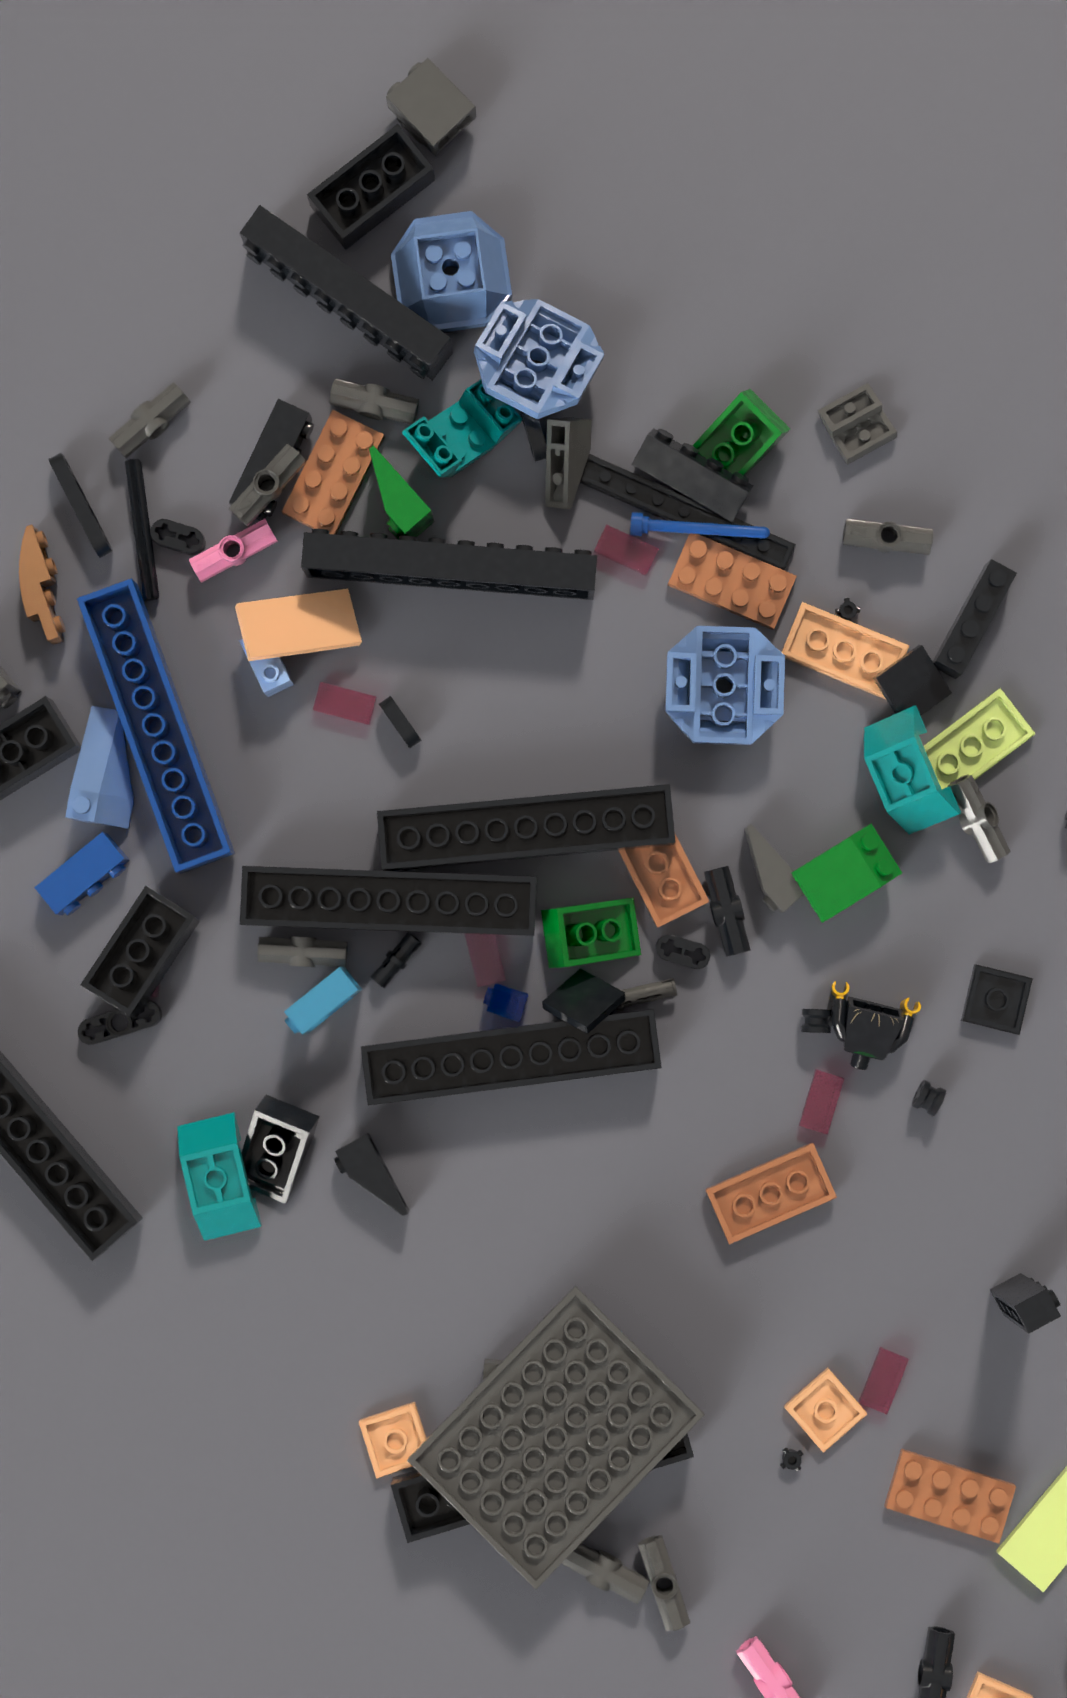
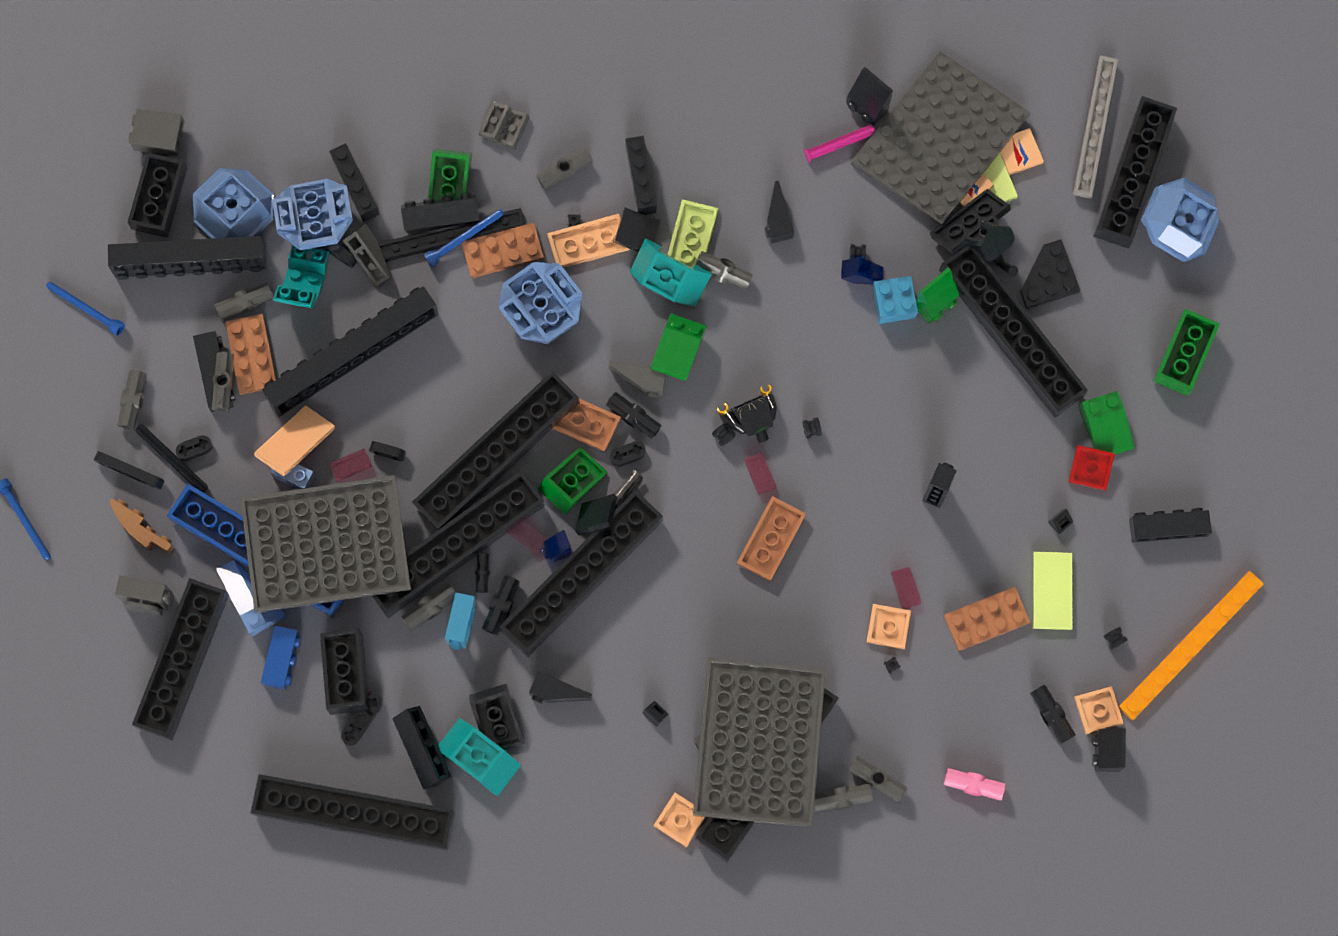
camera: 45 degrees left, 10 degrees down
(160, 1115) = (421, 747): none -> black brick
(199, 313) = (116, 326): none -> blue piece
(215, 559) = (225, 442): bright pink piece -> none
(233, 783) = (325, 544): none -> dark grey plate
(387, 1016) = (501, 605): none -> black piece
(404, 508) = (298, 338): green slope -> none
(466, 1291) = (655, 713): none -> black slope
(619, 355) = (354, 181): none -> black brick
(626, 550) = (436, 276): clear pink tile -> none
(996, 999) = (806, 353): black tile -> none

